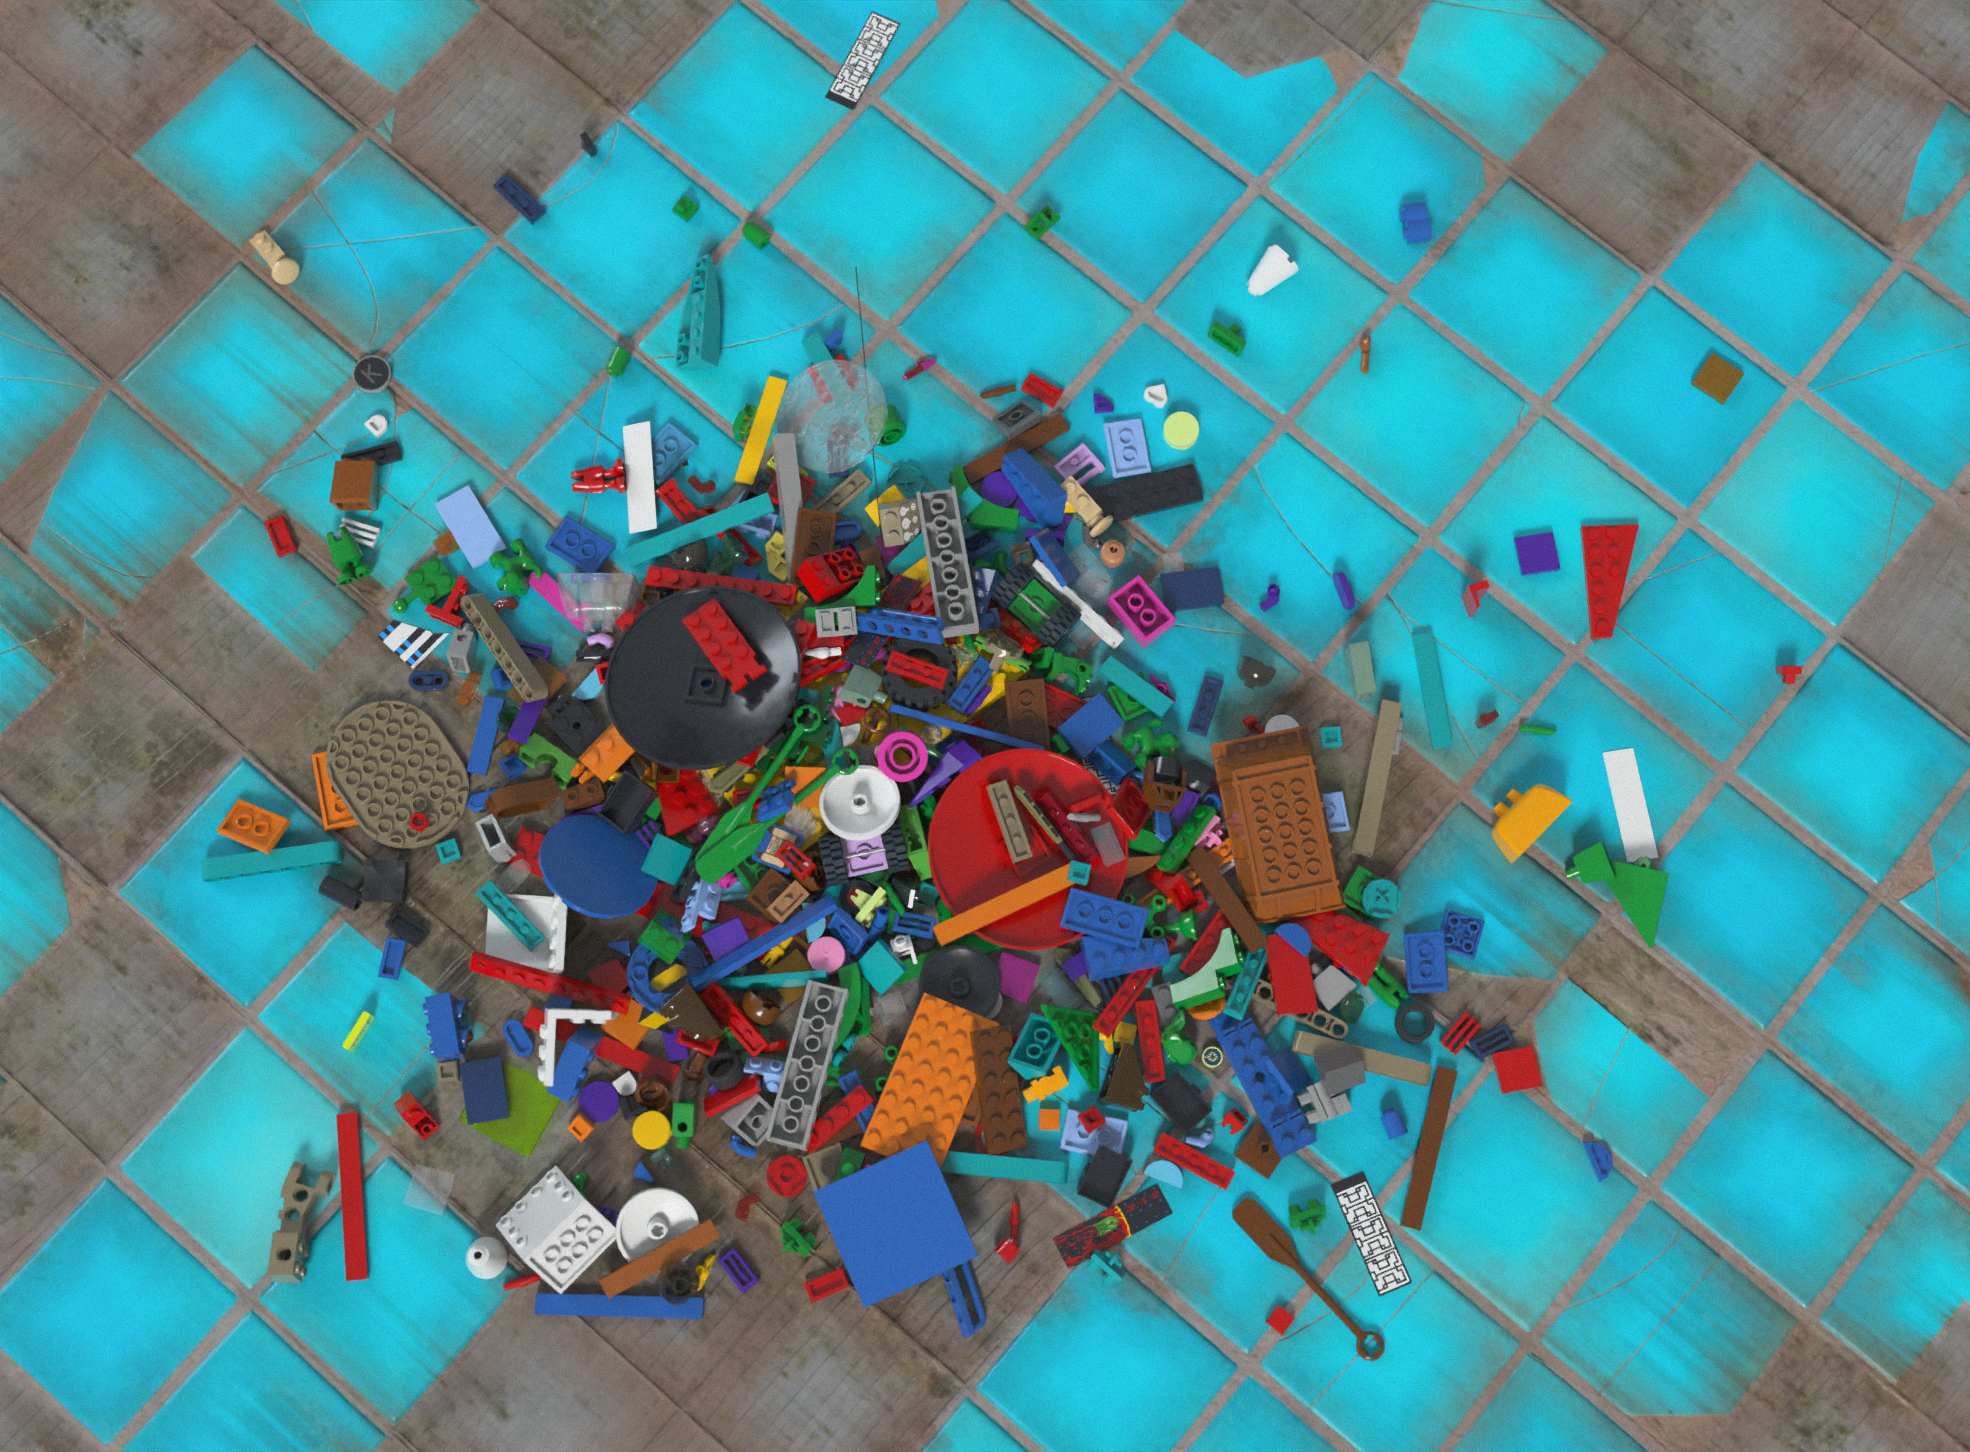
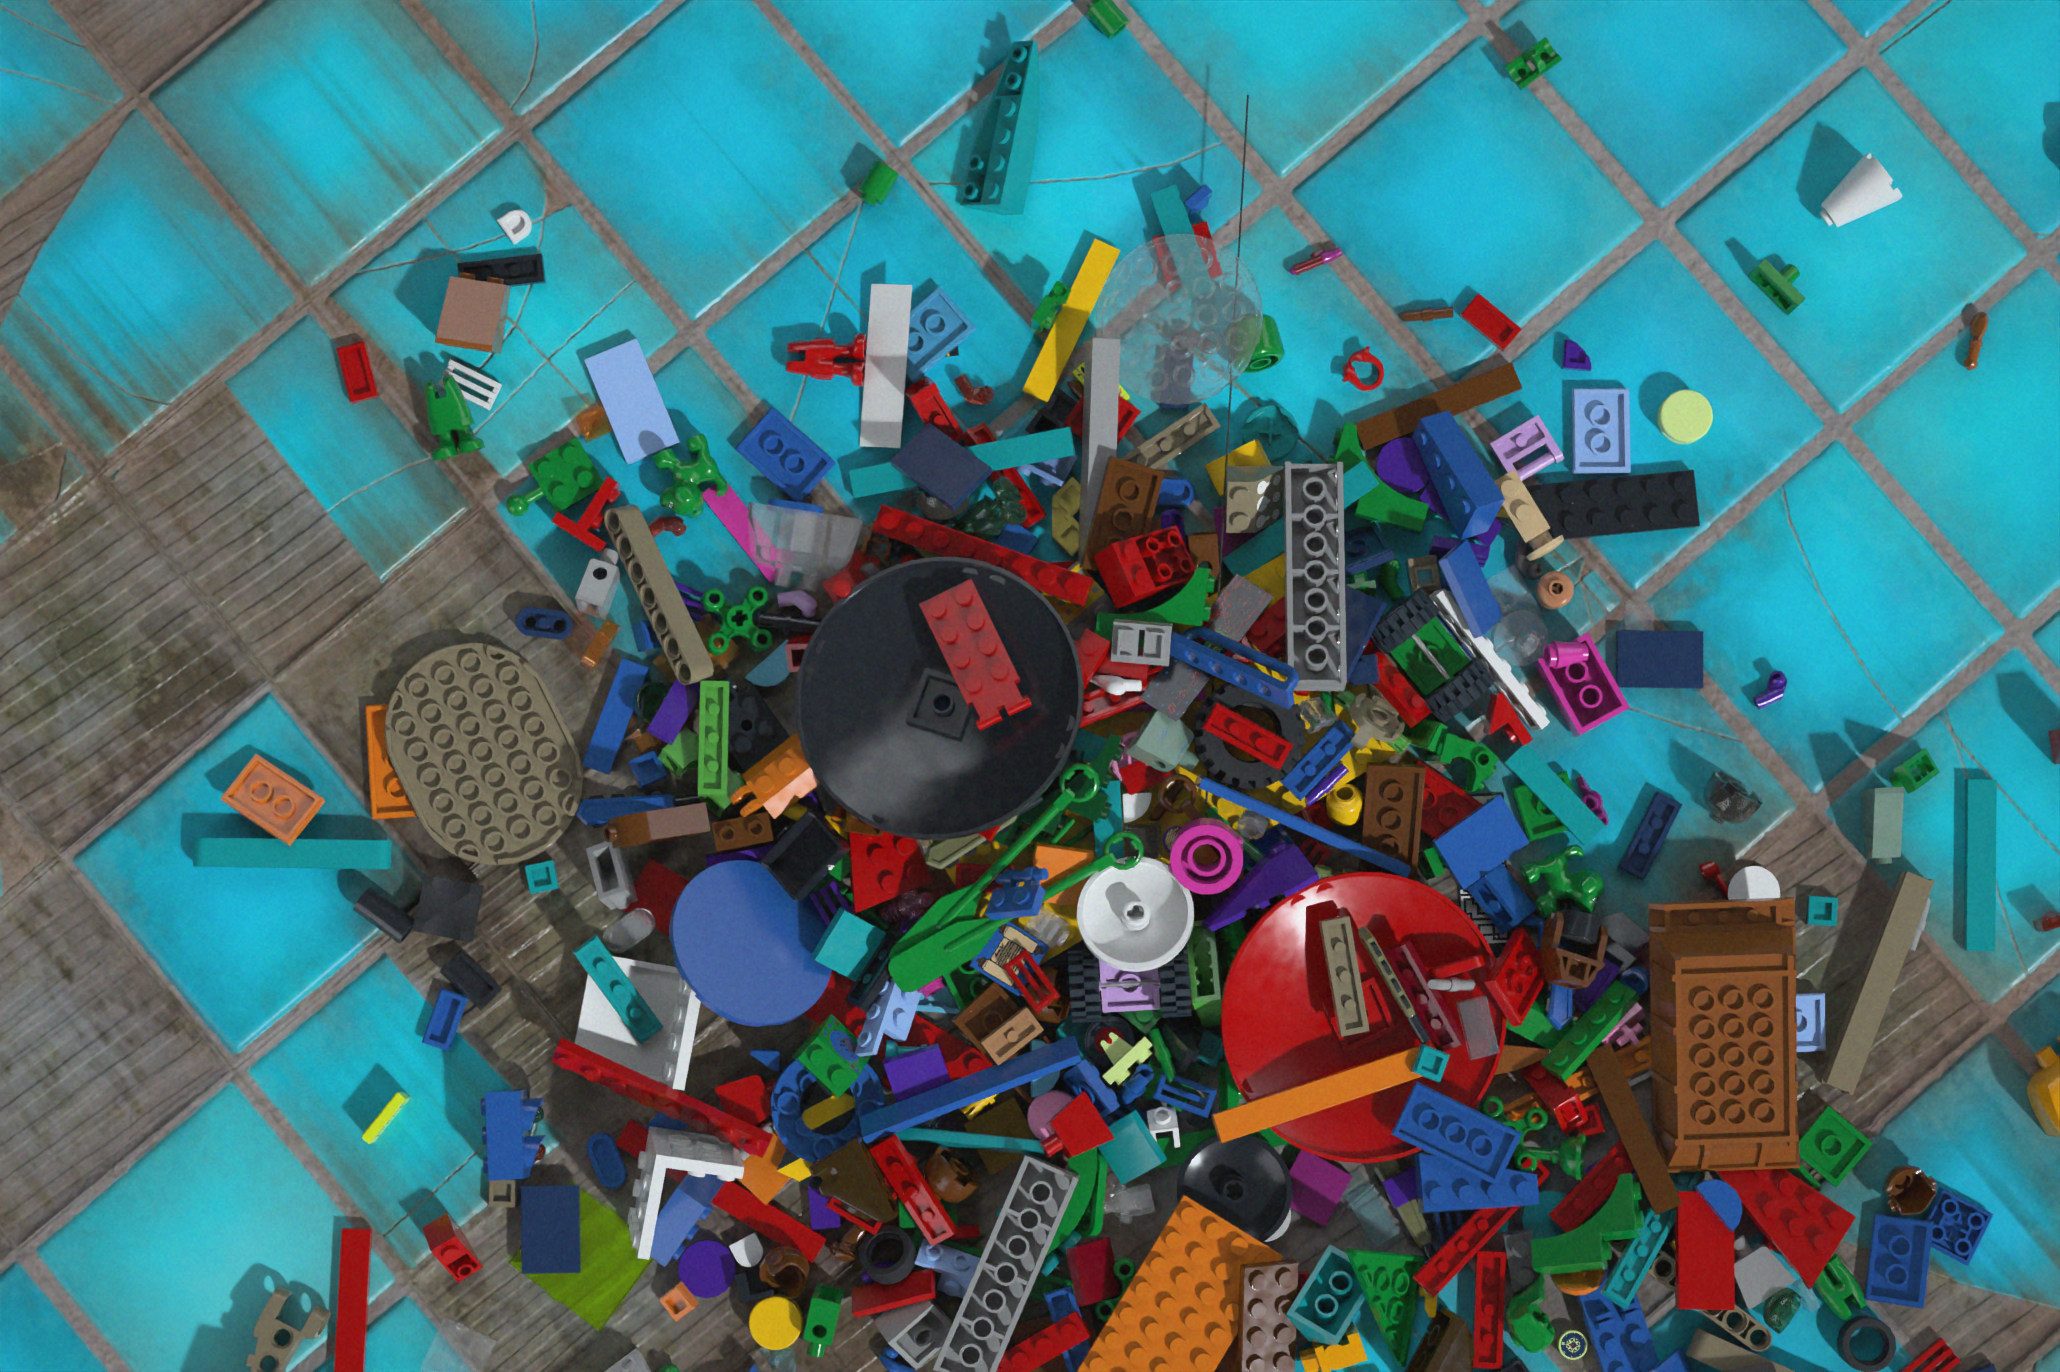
camera: 10 degrees right, 10 degrees up
(372, 374) = (517, 145): black tile -> none
(410, 642) = (524, 559): sticker -> none
(419, 817) = (498, 832): red plate -> none
(554, 735) = (713, 738): none -> bright green plate
(557, 663) = (729, 628): none -> green gear
(685, 532) = (941, 466): none -> dark blue tile
(842, 957) = (1076, 1128): none -> red torso
(869, 1057) = (1093, 1271): none -> dark red tile
(953, 437) = (1349, 371): none -> red piece
(994, 715) = (1345, 805): none -> yellow head
(1017, 420) = (1447, 362): dark grey slope -> none
(1091, 637) = (1501, 714): none -> red slope
(1125, 589) = (1562, 654): none -> dark pink cone
(1125, 1033) = (1456, 1292): yellow plate -> none
(1156, 395) = (1657, 355): white tile -> none
(1343, 590) = (1879, 697): dark purple tile -> none
(1376, 633) = (1914, 771): none -> green tile
(1381, 898) = (1852, 1160): teal tile -> none
(1423, 912) = (1909, 1189): none -> reddish brown cap

